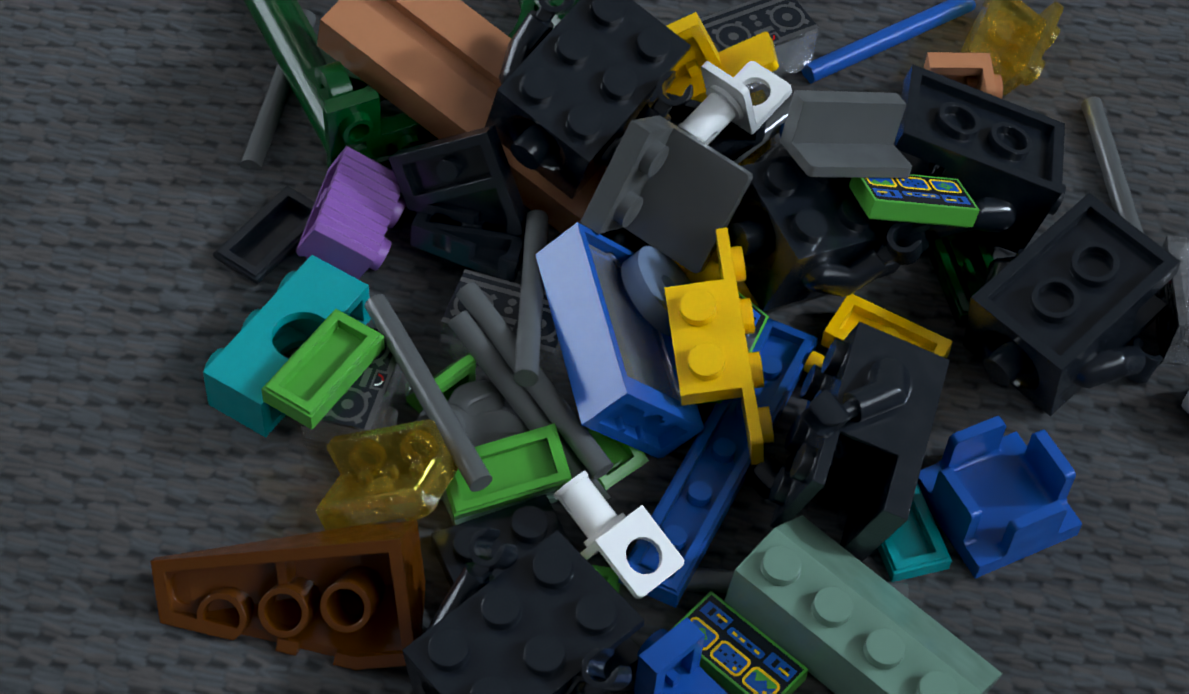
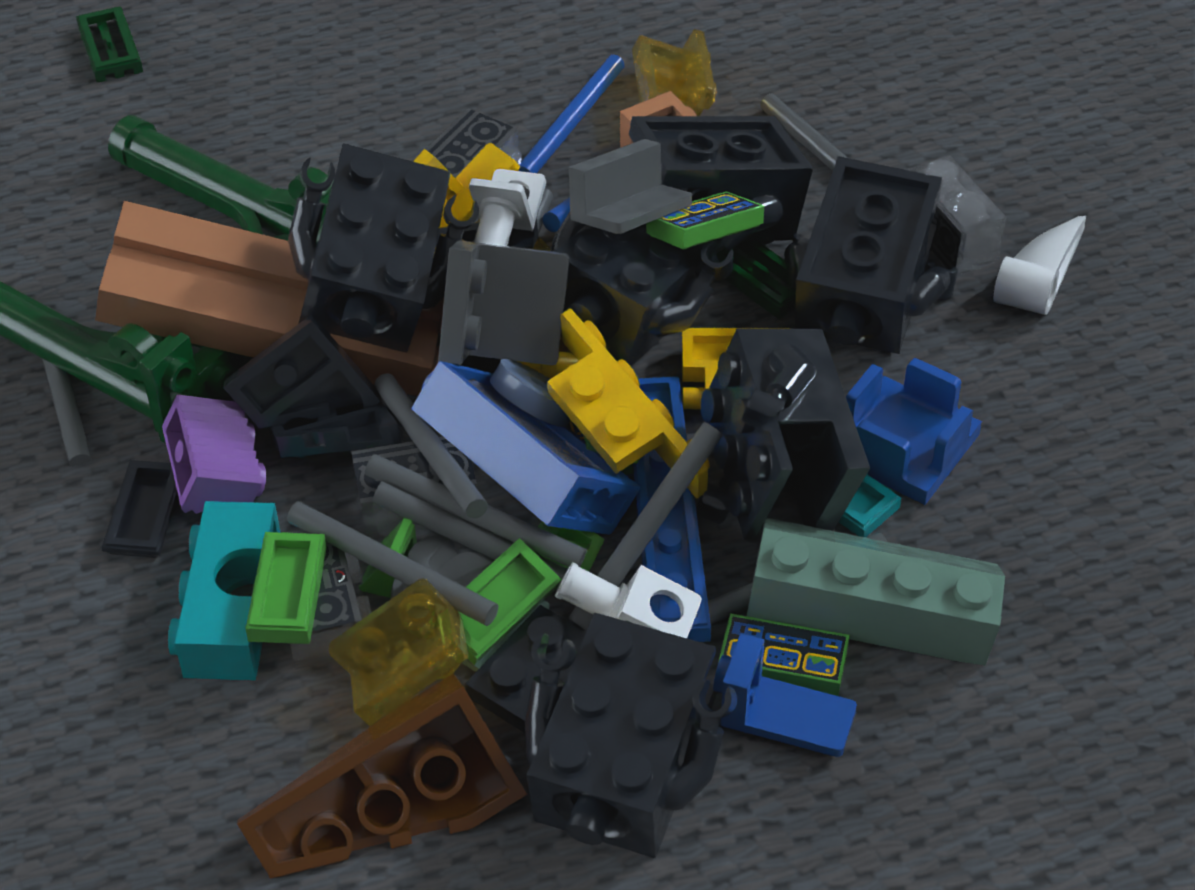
camera: 25 degrees left, 5 degrees down
(691, 460) = (655, 512): none -> dark grey bar

